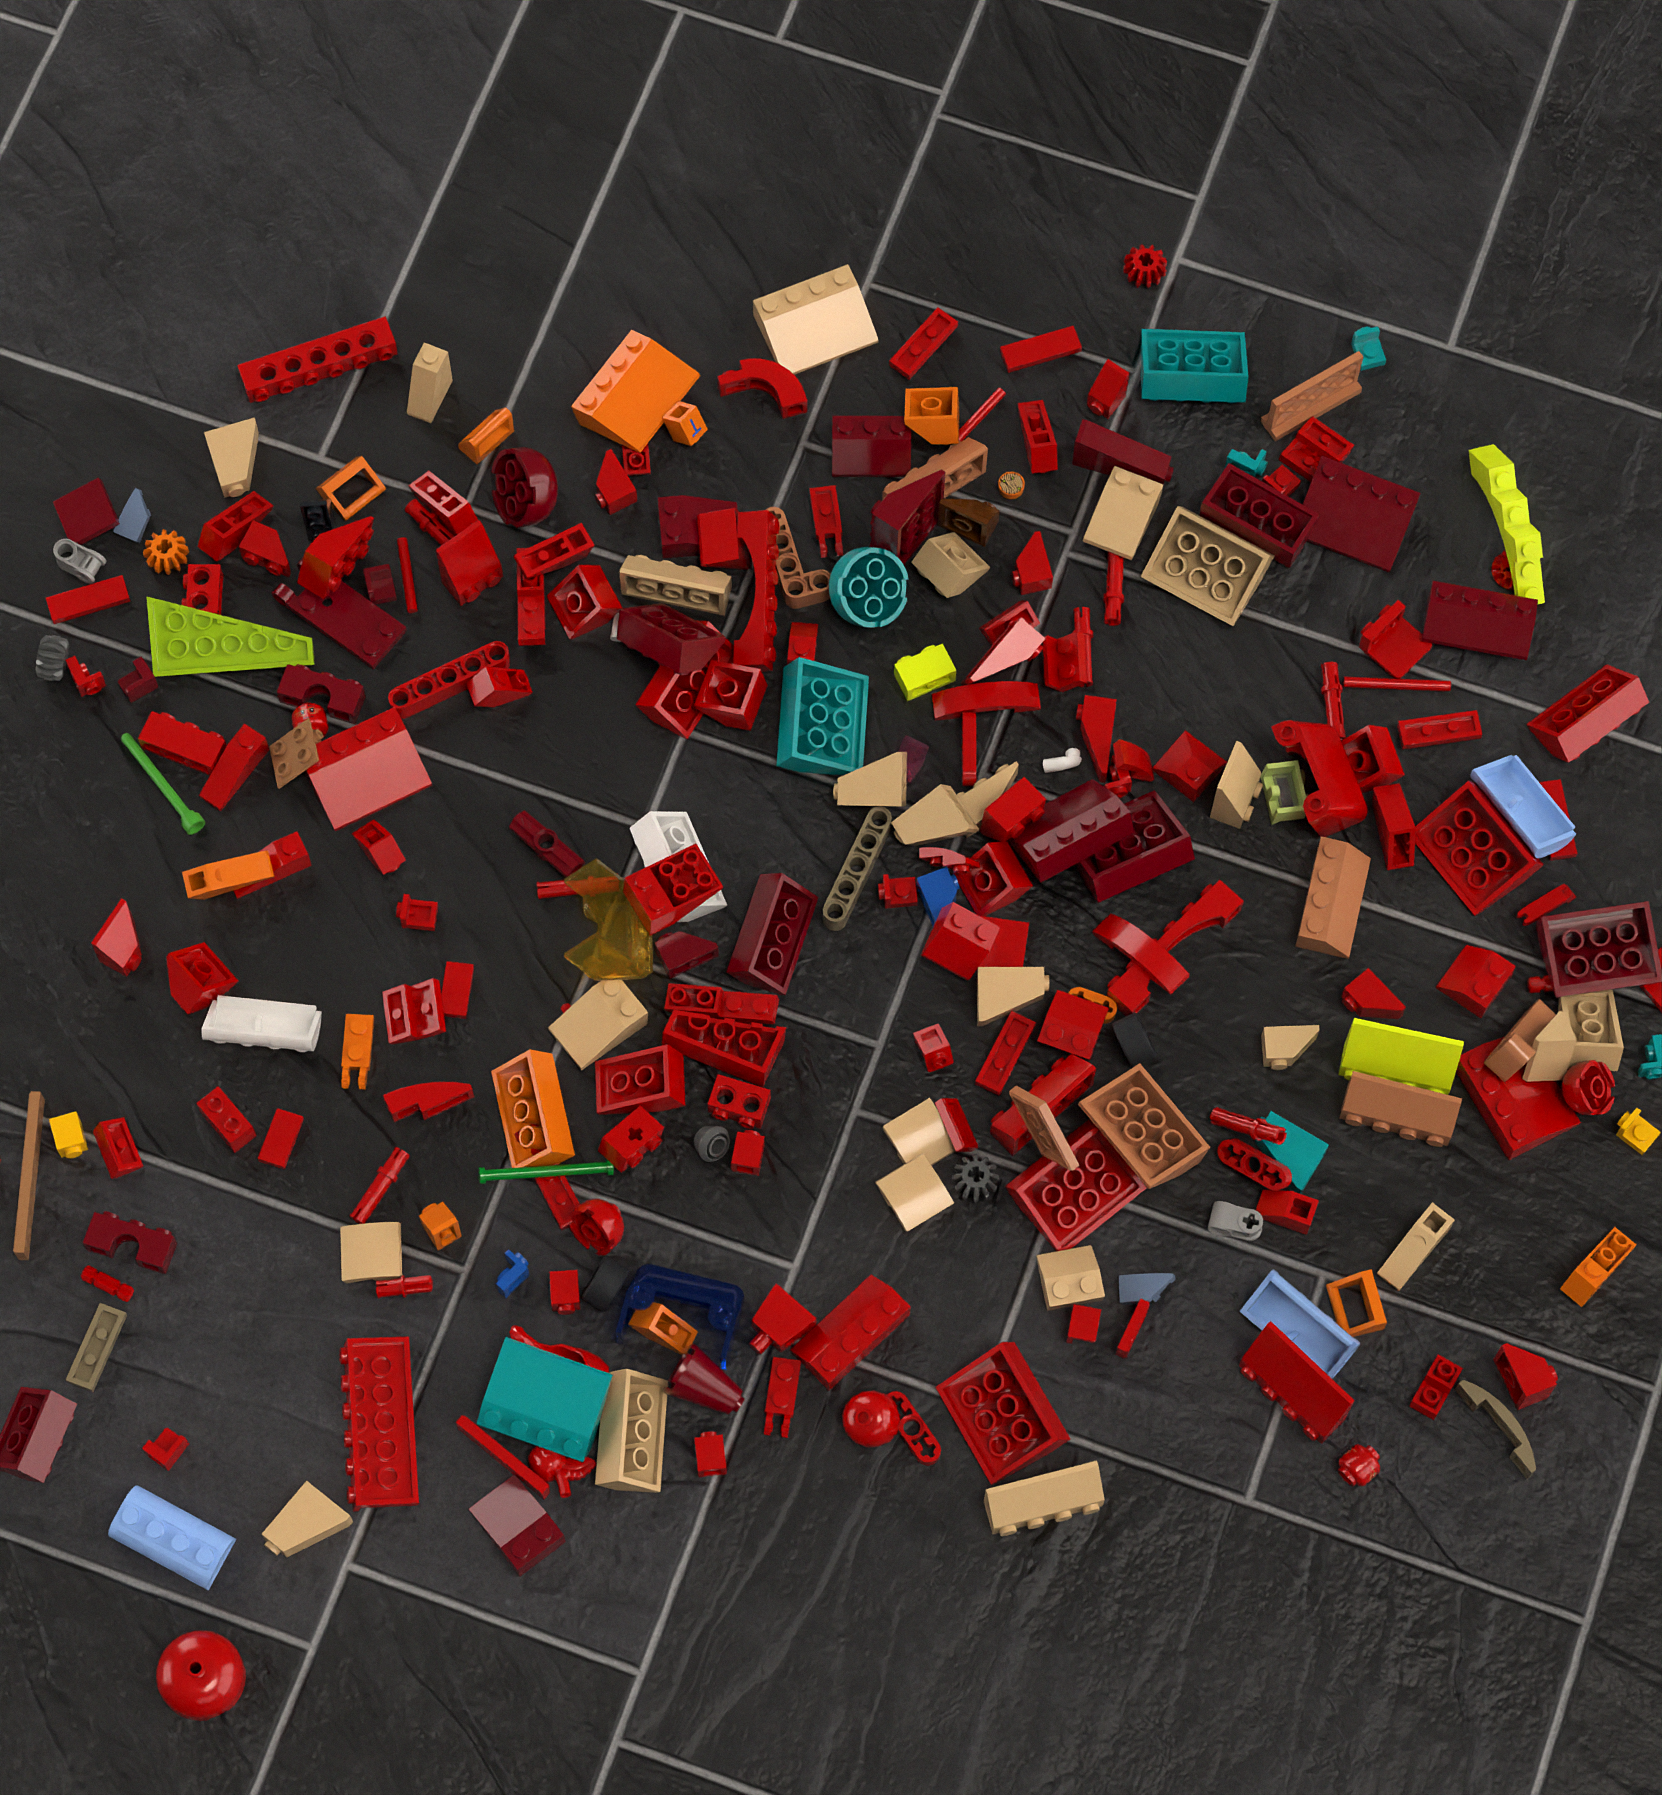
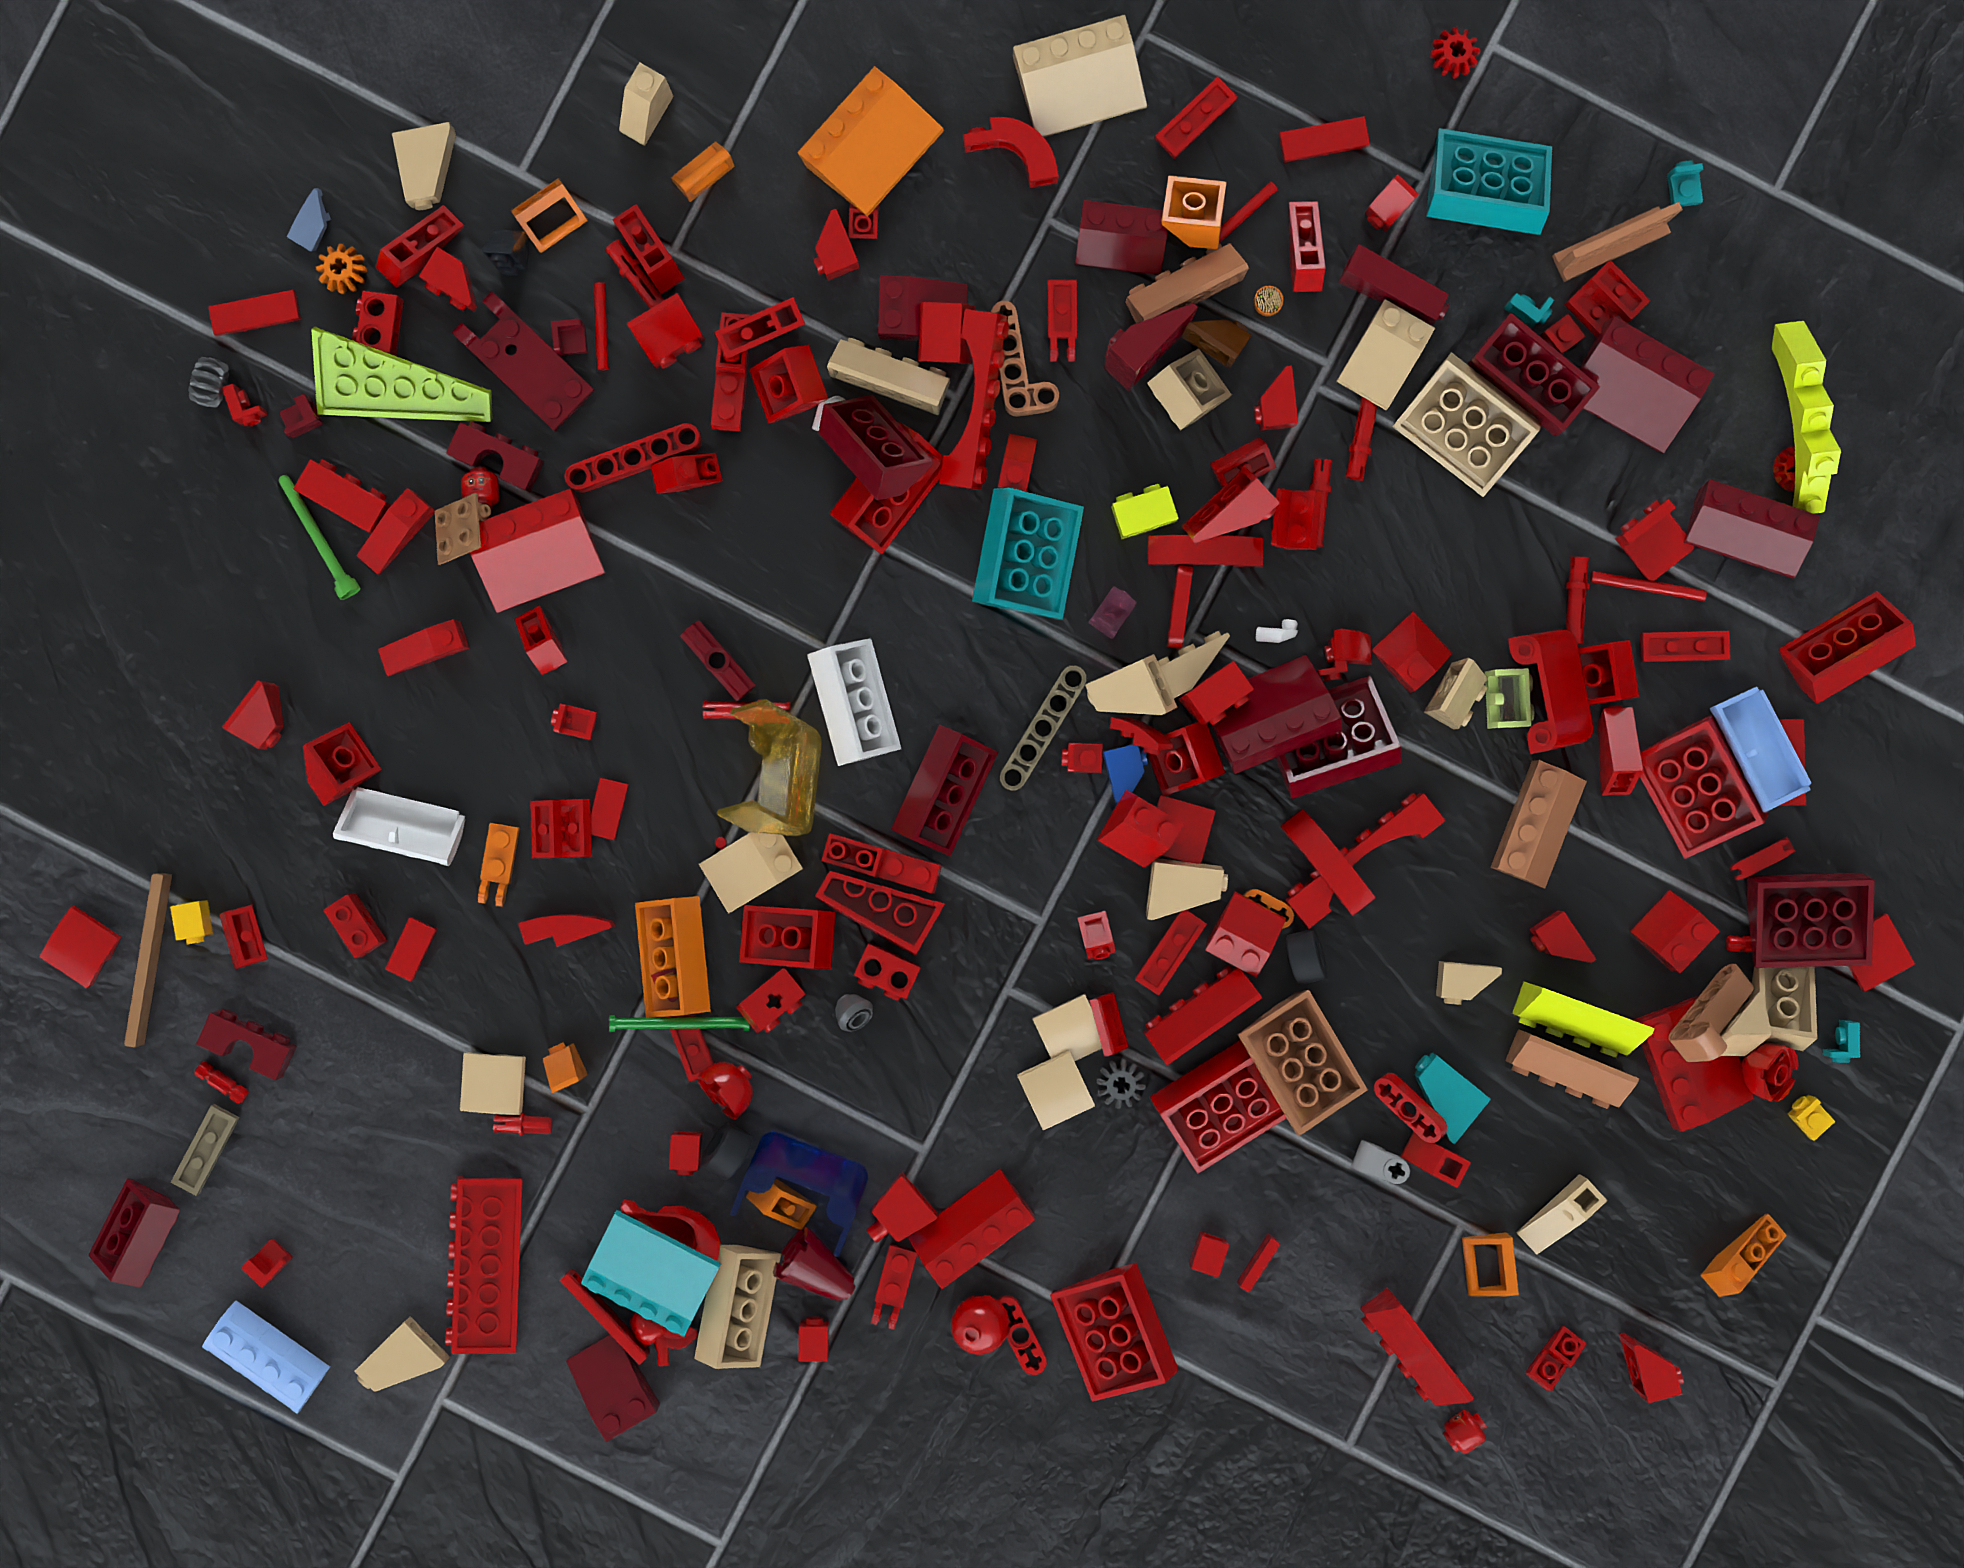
camera: 10 degrees right, 20 degrees up
(82, 563) = (249, 269): light grey piece -> none
(86, 512) = (258, 211): dark red tile -> none
(210, 1690) = (292, 1484): red cylinder -> none
(227, 875) = (375, 659): orange slope -> none
(324, 348) = (511, 49): red brick -> none
(334, 556) = (520, 304): red slope -> none
(385, 1177) = (514, 1006): red pin -> none
(512, 1278) = (631, 1130): blue bracket -> none
(533, 481) = (746, 243): dark red cylinder -> none
(671, 888) = (843, 739): red slope -> none
(683, 952) = (847, 799): dark red slope -> none
(685, 423) = (920, 186): orange brick -> none
(731, 694) = (933, 515): red slope -> none
(748, 1152) = (890, 1026): red brick -> none
(868, 587) = (1096, 410): teal cylinder -> none
(875, 784) = (1073, 640): tan slope -> none
(1043, 1128) = (1197, 1067): nougat tile -> none
(1044, 1498) = (1143, 1430): tan slope -> none
(1070, 1277) = (1202, 1203): tan slope -> none
(1096, 729) = (1320, 600): red slope -> none
(1143, 1286) = (1274, 1220): sand blue slope -> none
(1256, 1128) = (1420, 1077): red pin -> none
(1301, 1322) = (1428, 1285): light blue container -> none
(1475, 1397) = (1629, 1439): dark tan slope -> none

